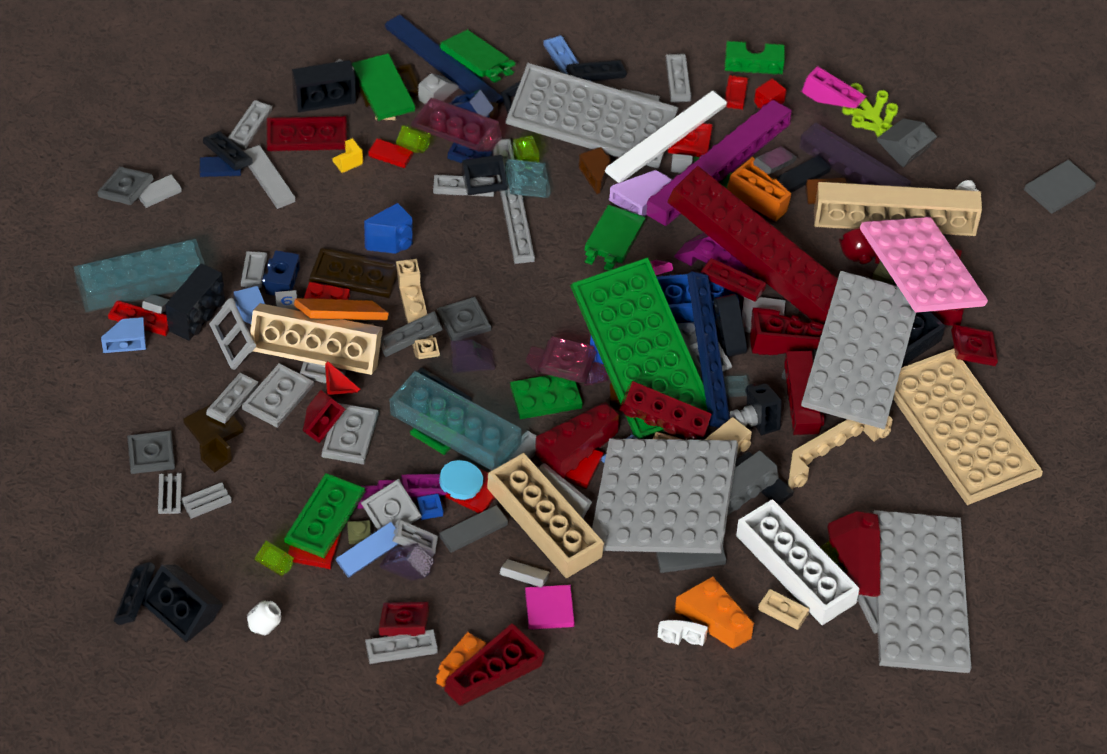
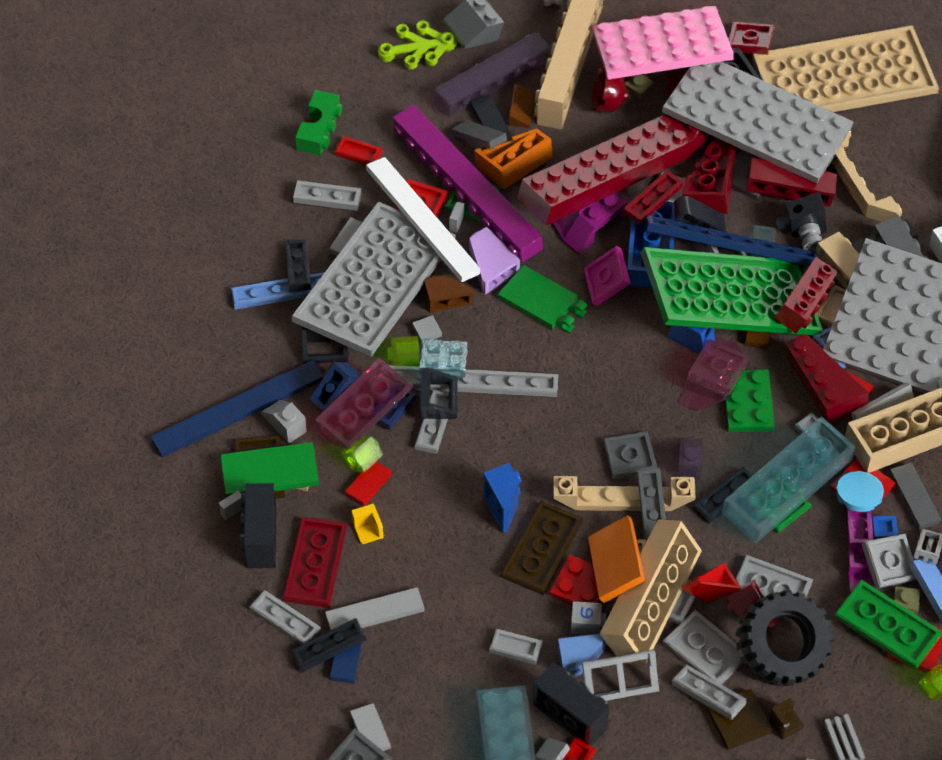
camera: 75 degrees left, 5 degrees up
(267, 414) = (814, 631): none -> black tyre
(281, 272) = (527, 606): dark blue brick -> none
(478, 55) = (241, 370): green tile -> none
(558, 165) = (427, 329): none -> light grey tile
(769, 91) = (377, 121): red brick -> none
(830, 90) = (389, 68): dark pink slope -> none

